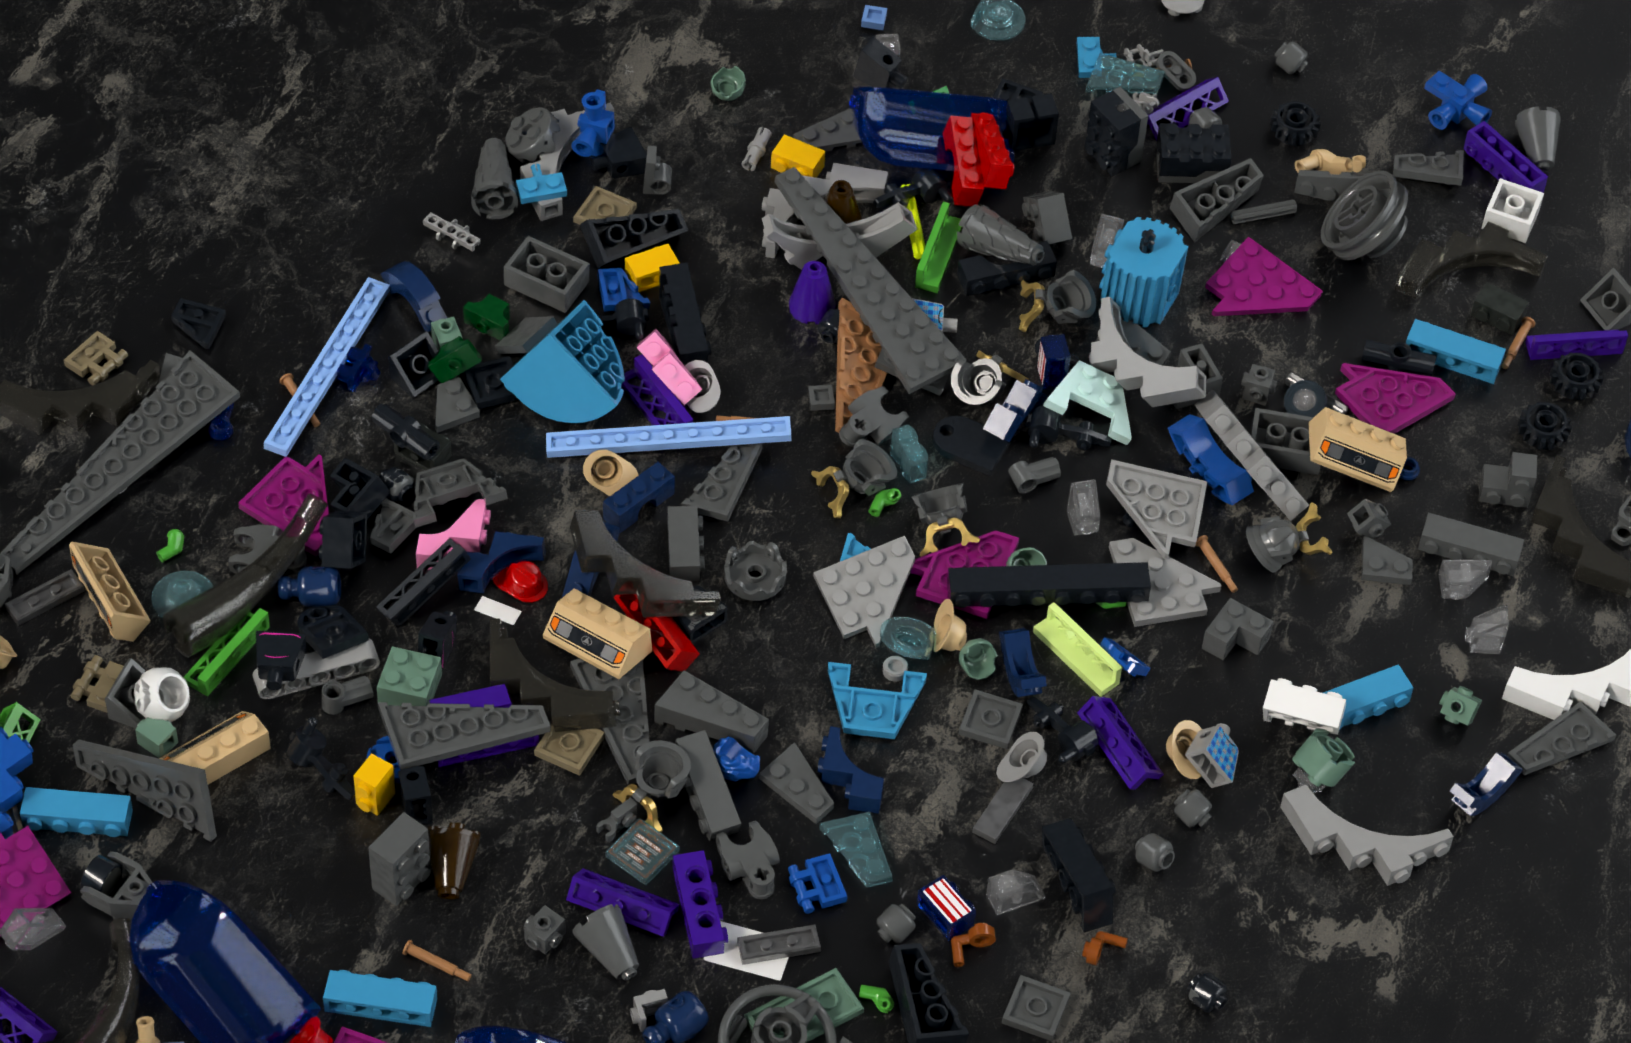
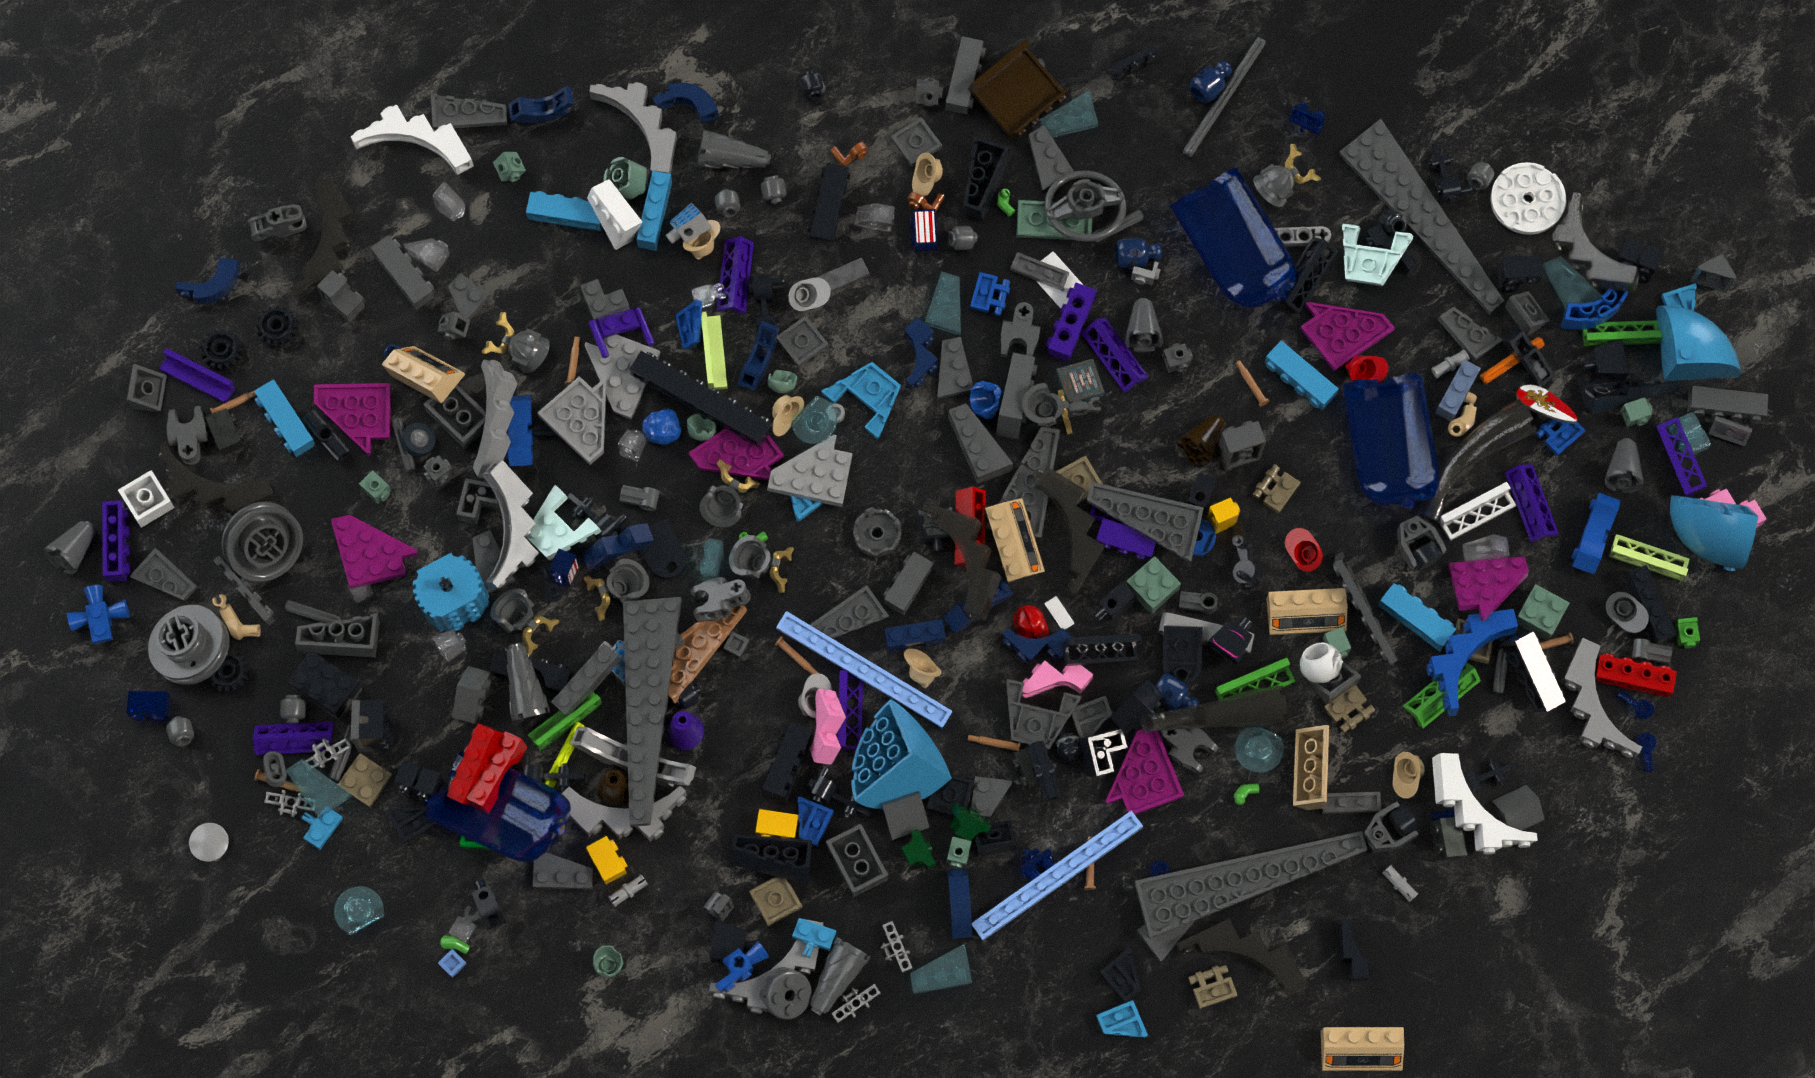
camera: 145 degrees left, 20 degrees up
(71, 973) = (1476, 504): none -> white fence
(173, 285) = (1122, 1021): none -> dark azure wing
(251, 806) = (1303, 549): none -> red piece
(322, 863) = (1282, 491): none -> dark tan plate
(387, 240) = (943, 972): none -> clear light blue wing
(463, 167) = (858, 997): none -> light grey piece
(482, 453) = (995, 742): none -> medium nougat piece
(891, 28) = (451, 942): none -> bright green arm
(942, 274) = (586, 680): none -> dark grey brick
(992, 971) = (927, 172): none -> tan piece
(1067, 544) = (662, 427): none -> blue hair
(1076, 109) = (365, 780): none -> dark tan plate
(1134, 701) = (707, 294): none -> clear plate
(1192, 633) = (617, 324): none -> dark purple plate
(1243, 854) = (720, 151): none -> dark grey cone
(1264, 751) = (654, 210): none -> dark azure brick
(1306, 340) = (375, 487): none -> sand green brick
(1334, 901) = (689, 95): none -> dark blue arch
(1341, 63) = (148, 705): none -> clear blue brick
(1353, 116) = (188, 644): none -> dark grey wheel
(1533, 287) = (187, 435): none -> dark grey piece

